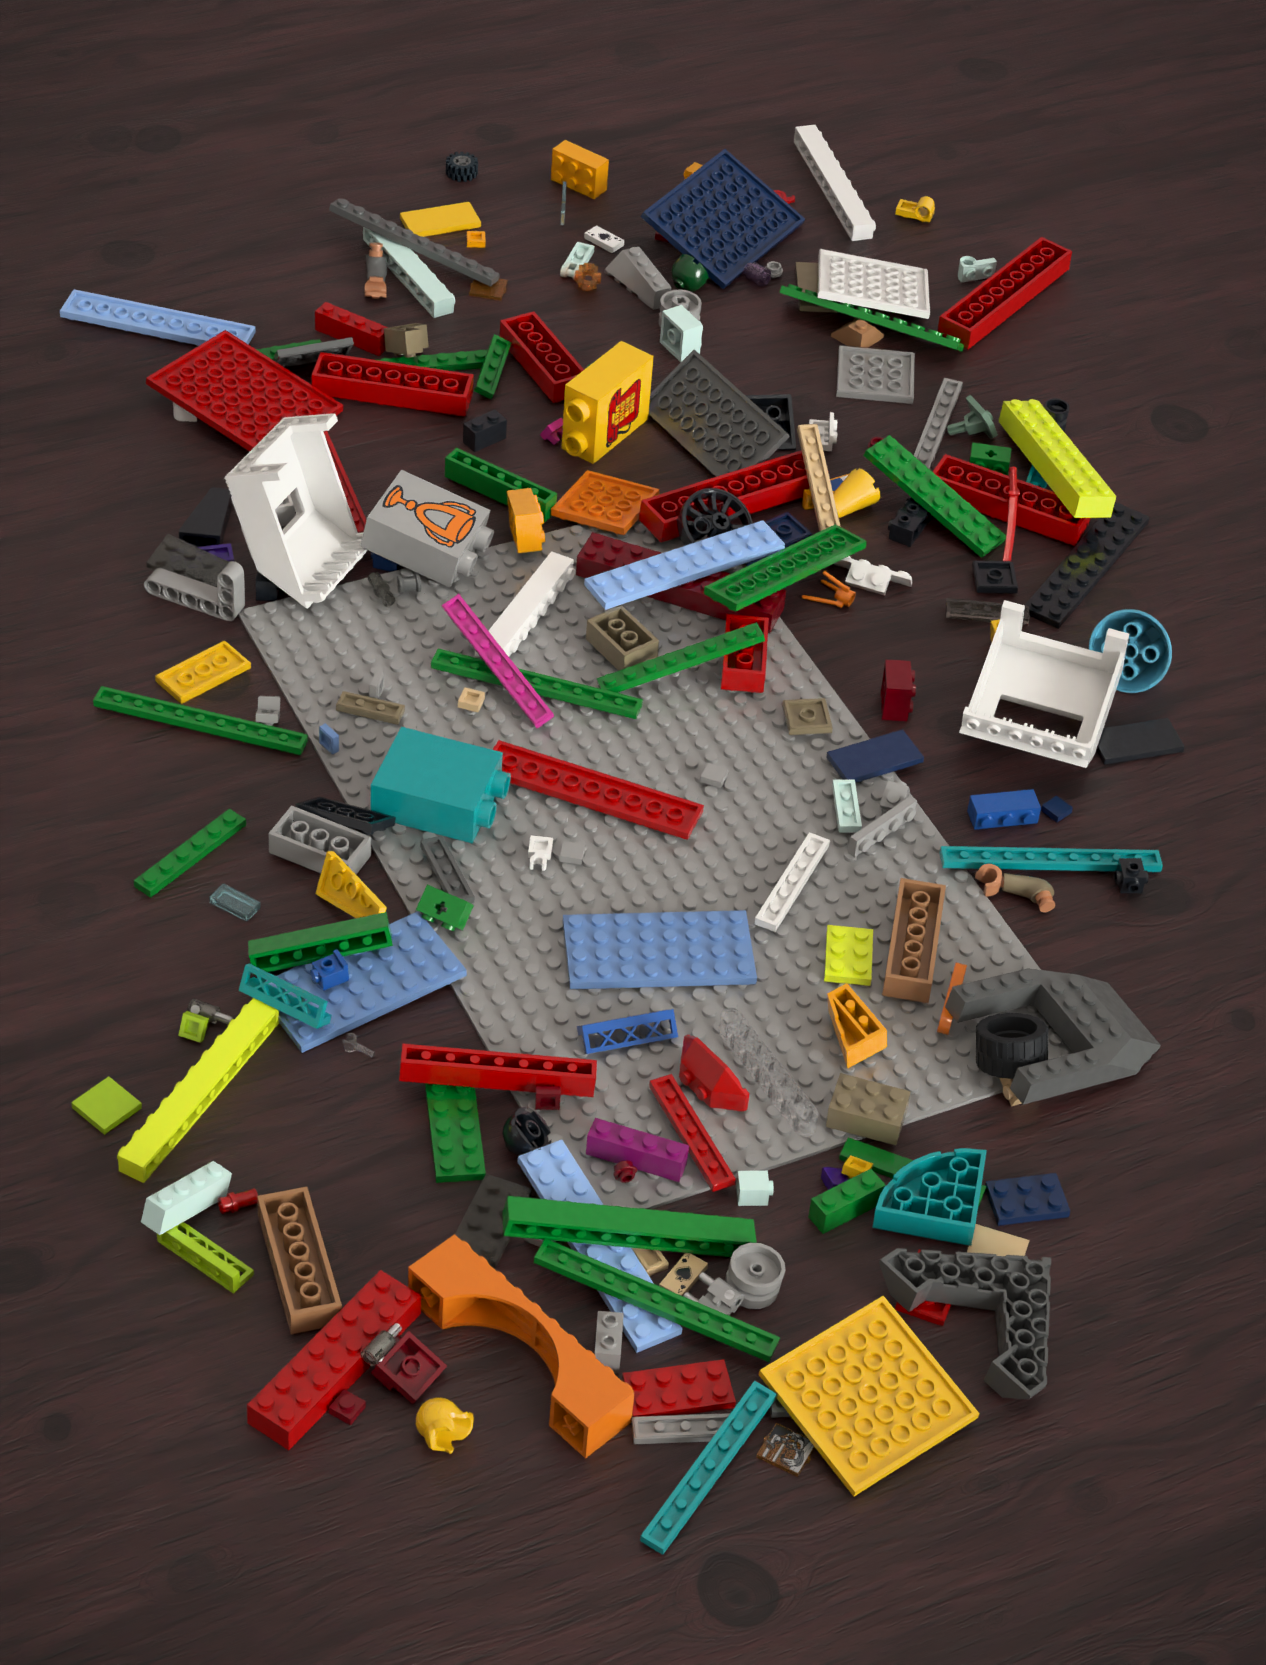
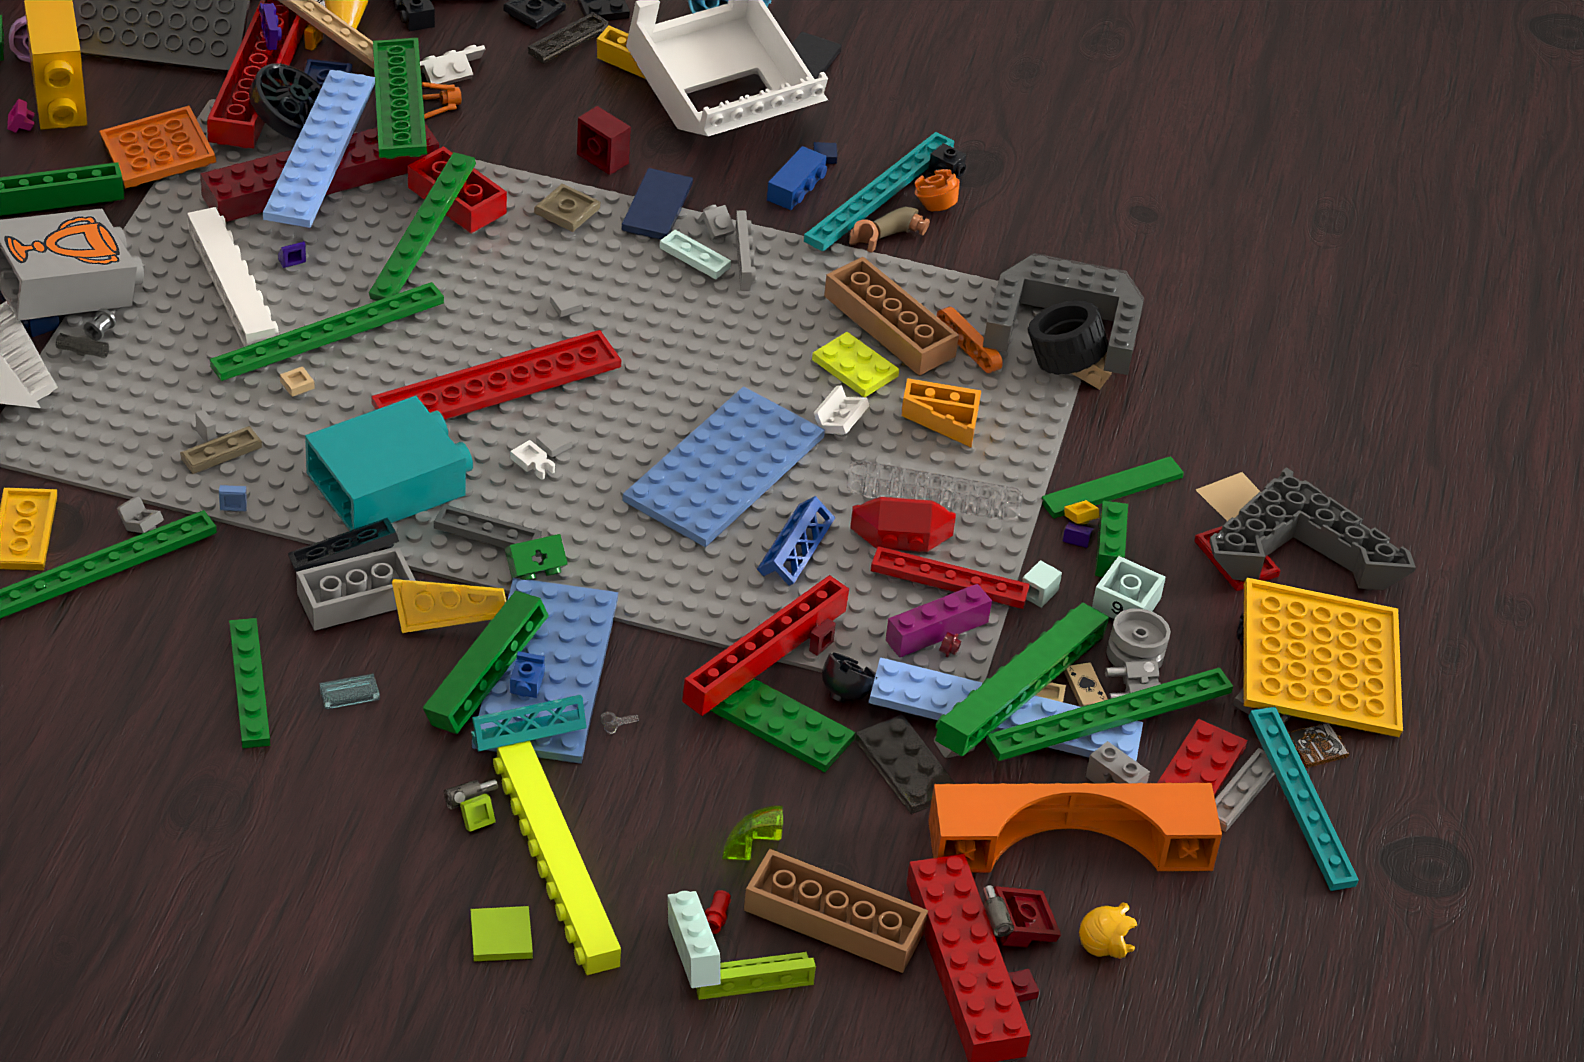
camera: 50 degrees left, 0 degrees up
(328, 1172) = (759, 824): none -> clear neon green brick
(498, 661) = (281, 331): dark pink tile -> none
(525, 520) = (127, 201): light orange brick -> none
(580, 621) = (292, 254): none -> dark purple slope
(621, 638) = (348, 245): dark tan brick -> none
(770, 466) = (269, 25): none -> dark purple hinge
(782, 973) = (839, 412): none -> white bracket
(792, 882) = (743, 340): white plate -> none
(800, 1240) = (1127, 587): none -> light aqua brick
(868, 1109) = (1037, 460): dark tan brick -> none
(934, 1196) = (1165, 486): teal brick -> none
(1027, 1199) = (1204, 444): dark blue plate -> none
(1090, 888) = (938, 191): none -> orange cone

